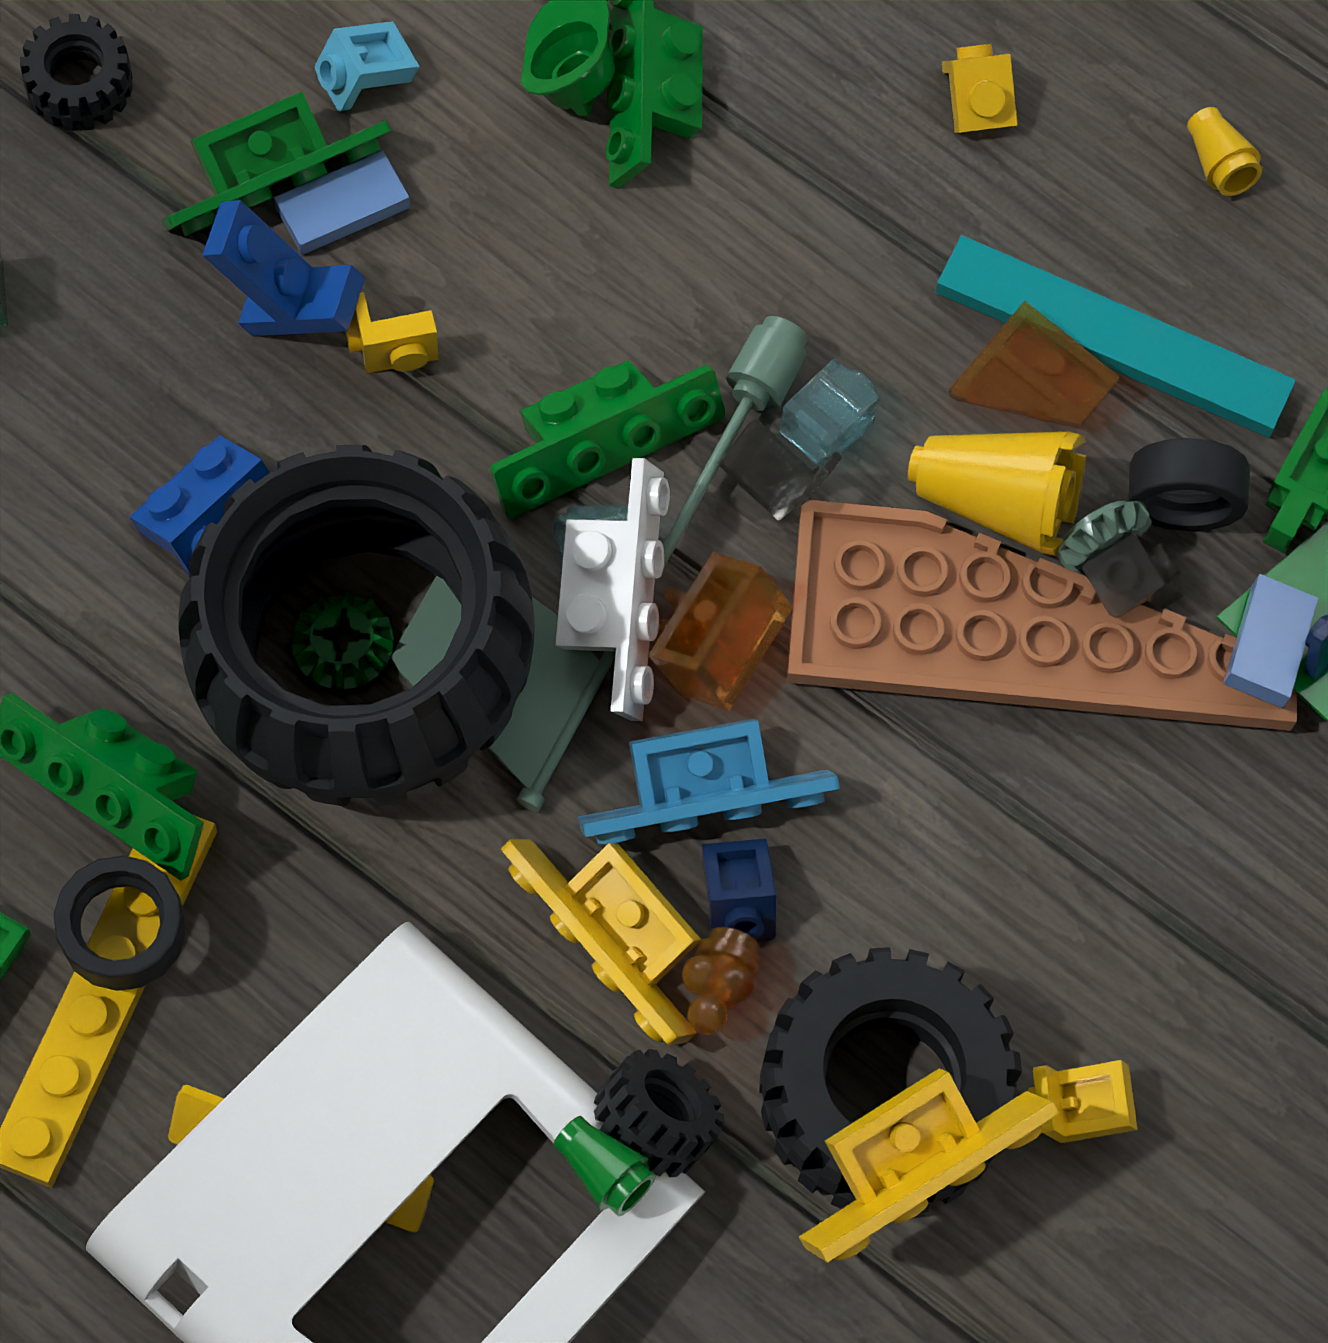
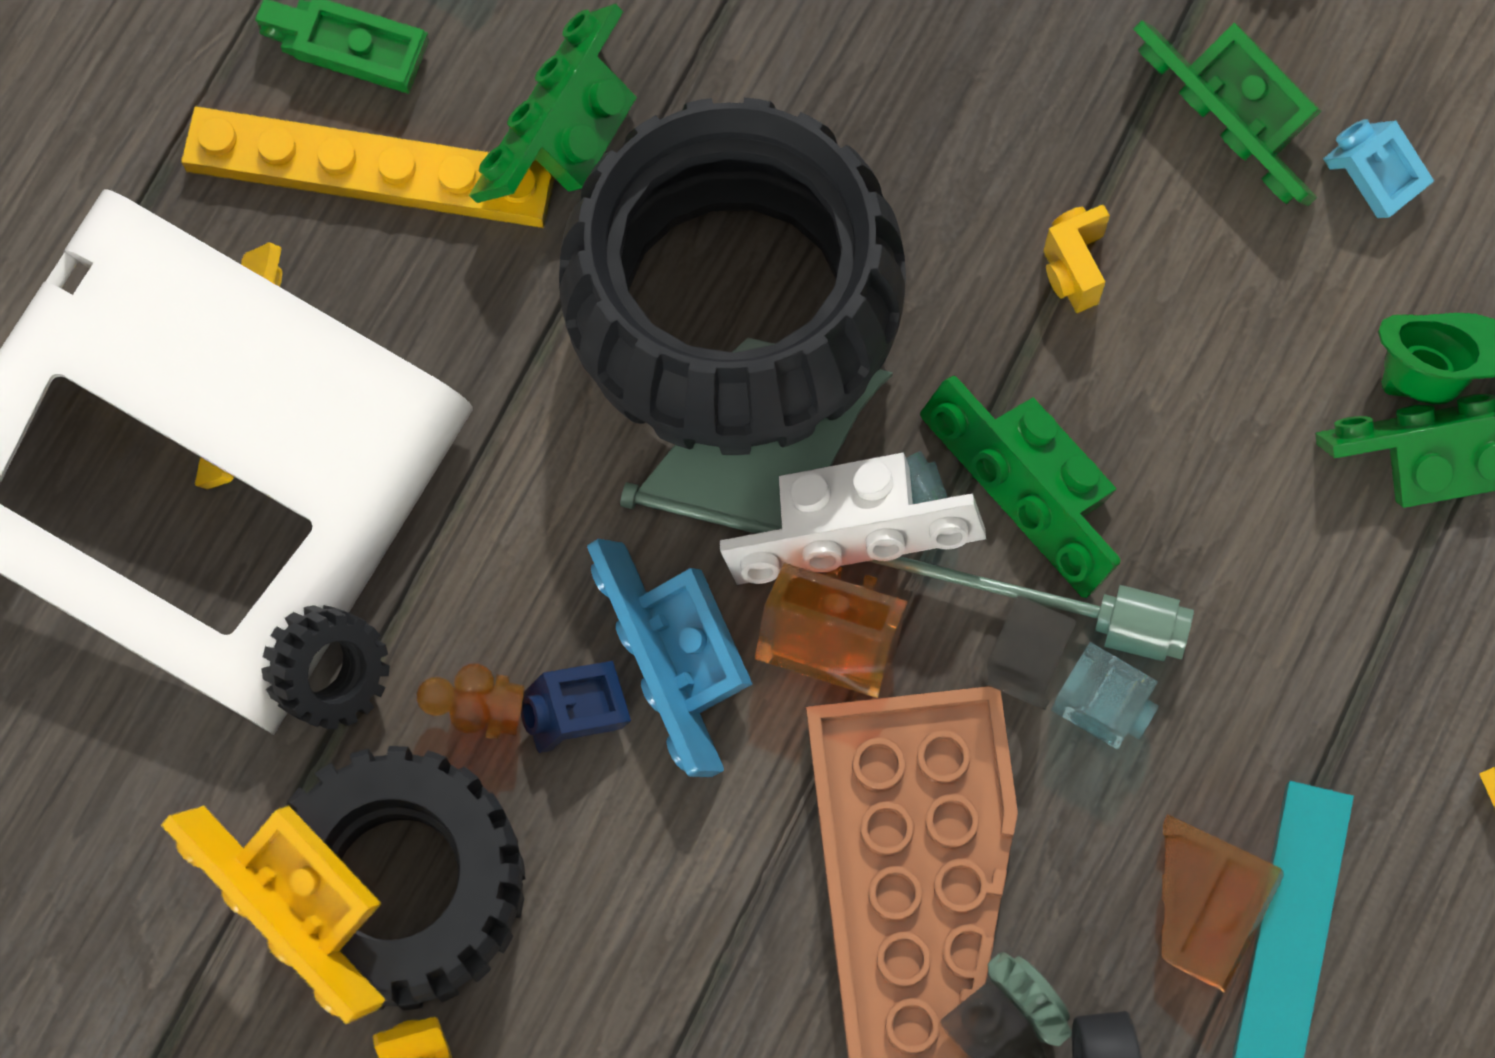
camera: 85 degrees right, 5 degrees up
(106, 875) = (399, 111): black tyre -> none
(196, 497) = (881, 134): blue bracket -> none
(280, 285) = (1095, 125): blue bracket -> none
(342, 202) = (1219, 183): medium blue tile -> none
(362, 659) = (733, 309): green gear -> none
(605, 1166) = (250, 620): green cone -> none
(620, 924) = (511, 593): yellow bracket -> none
(1005, 481) = (1066, 889): yellow cone -> none

